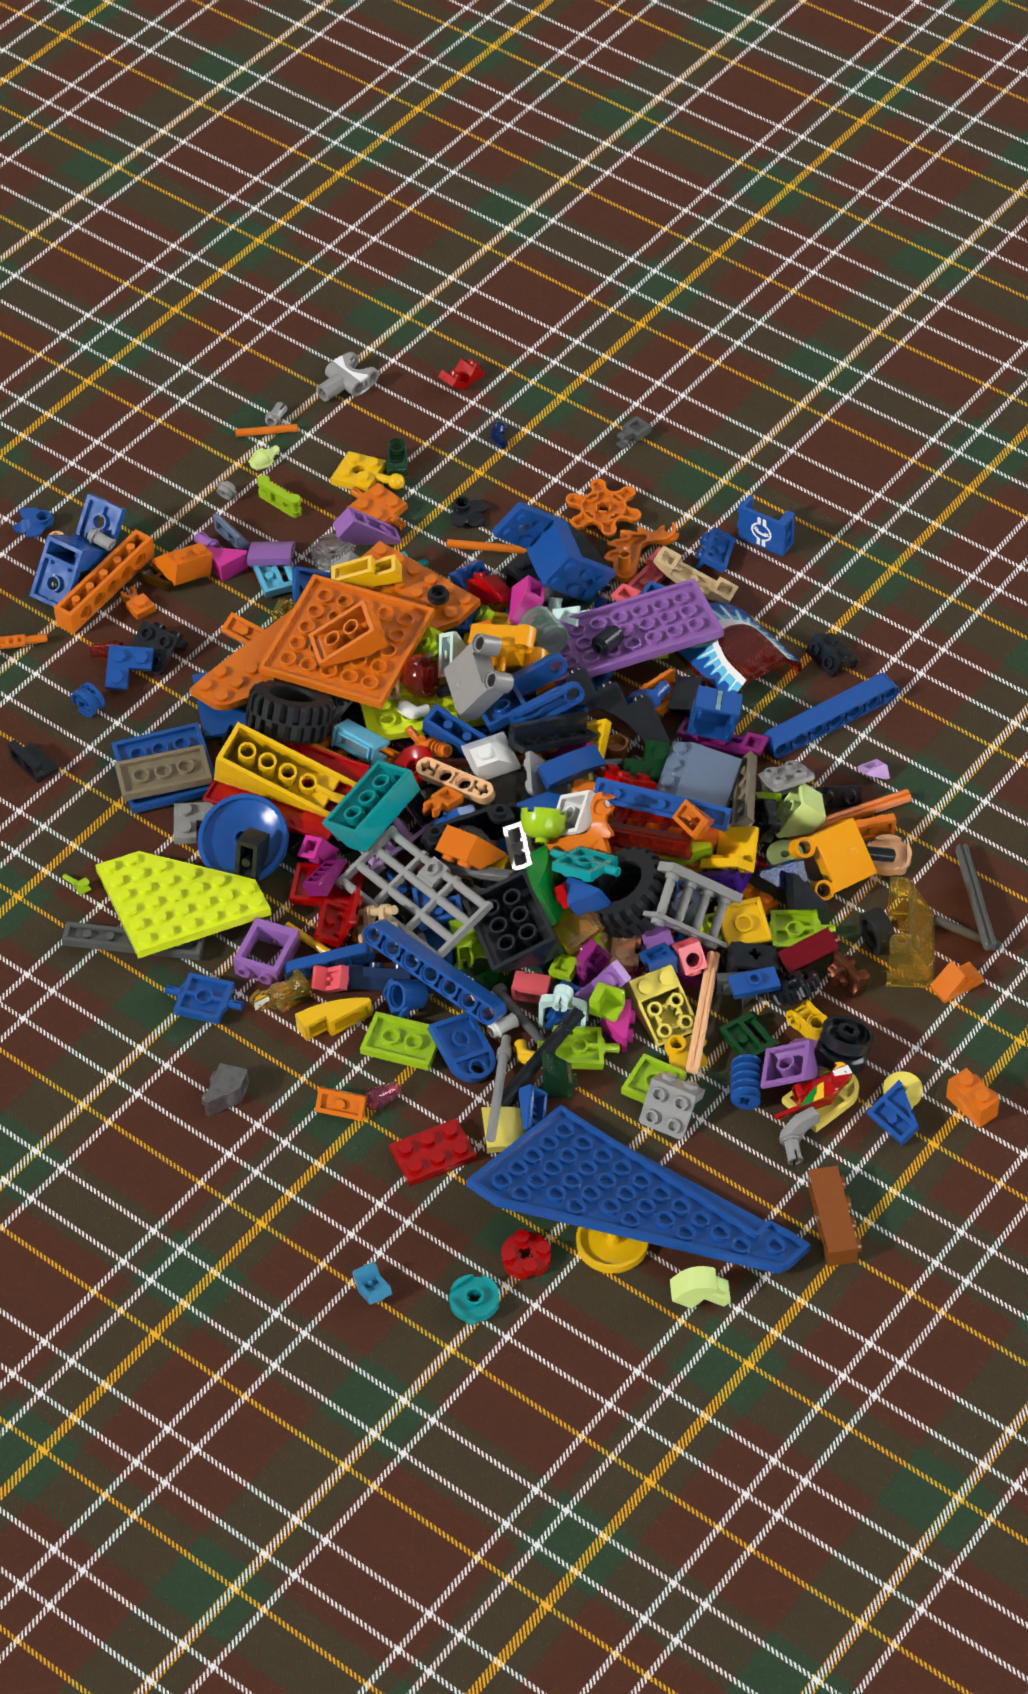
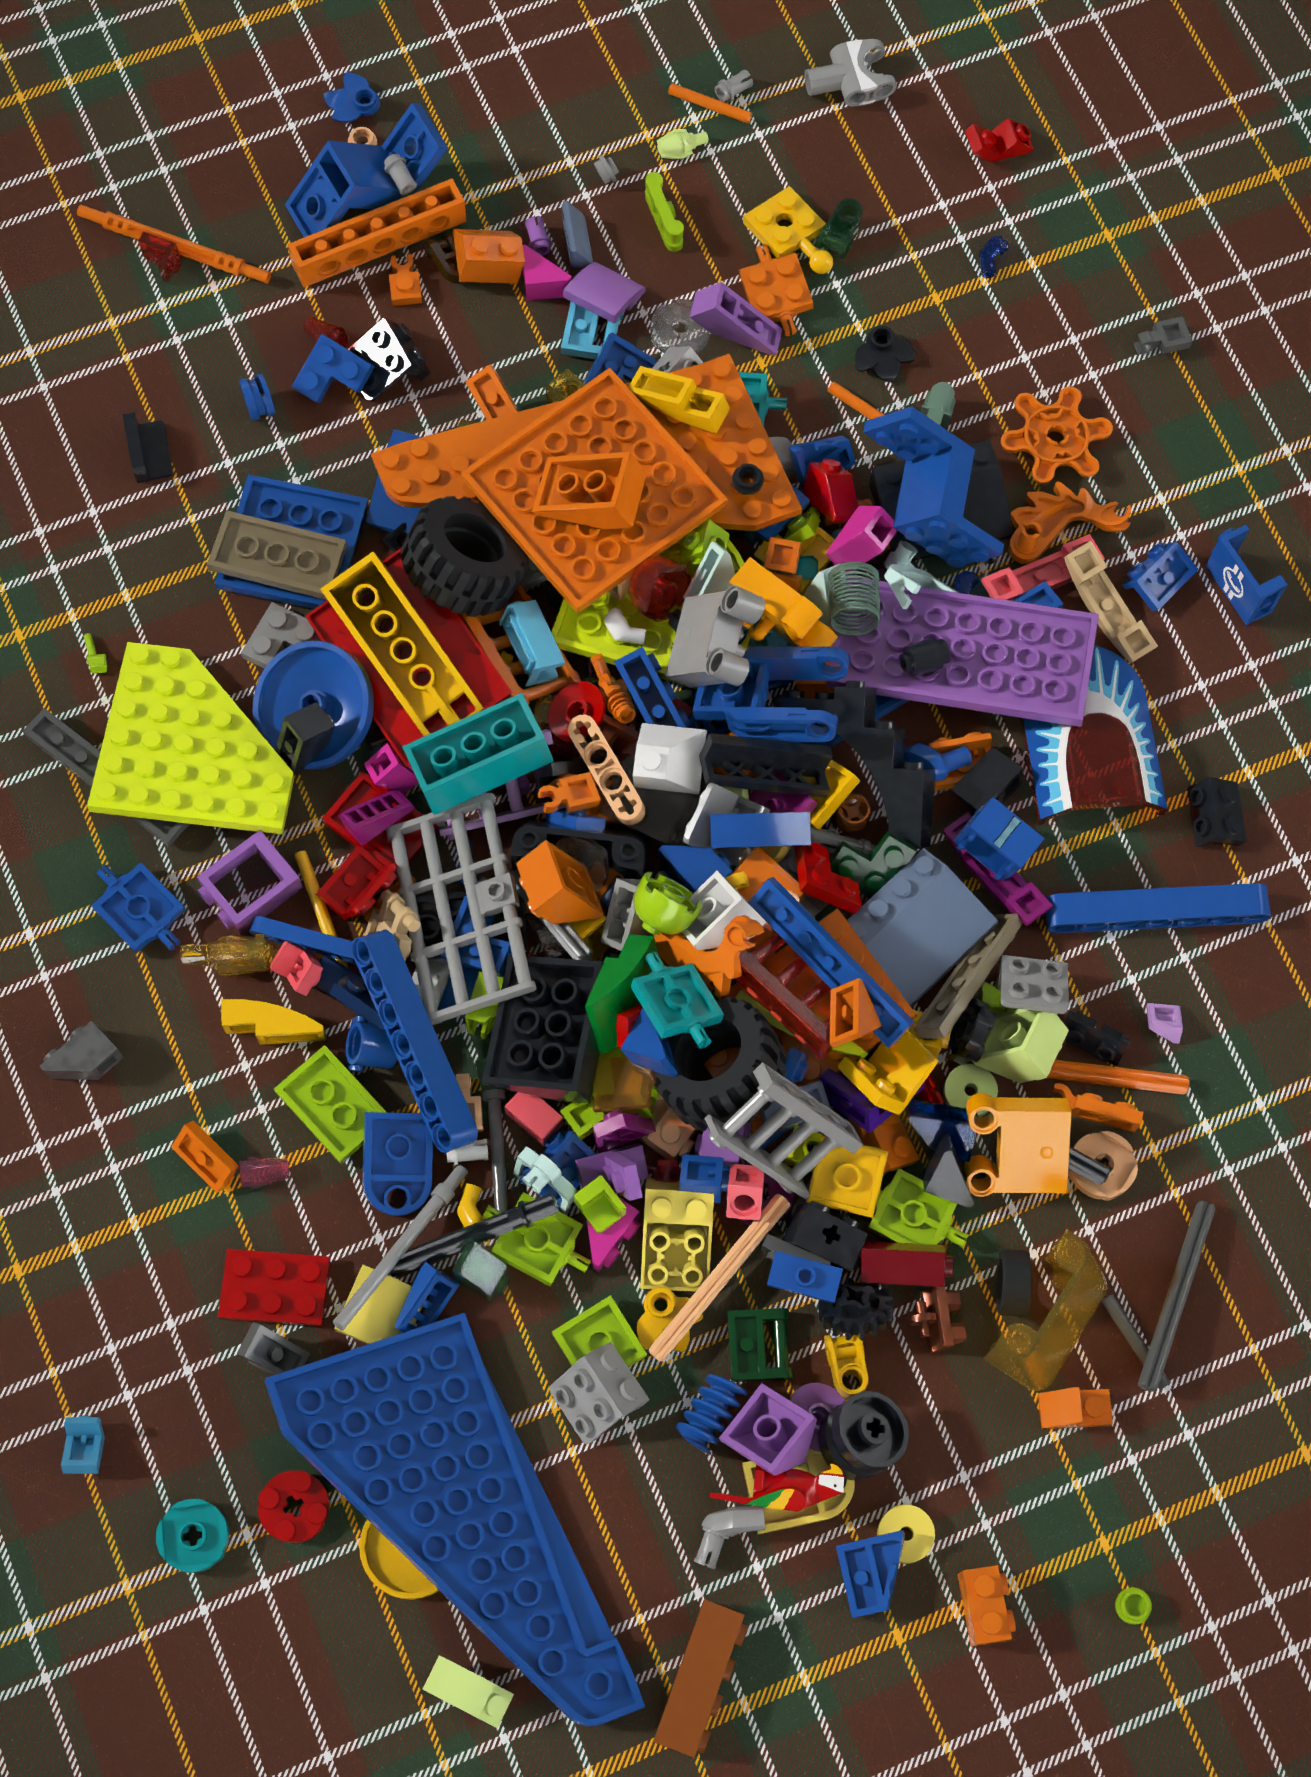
camera: 25 degrees right, 20 degrees up
(454, 1180) = (271, 1351): none -> dark grey slope

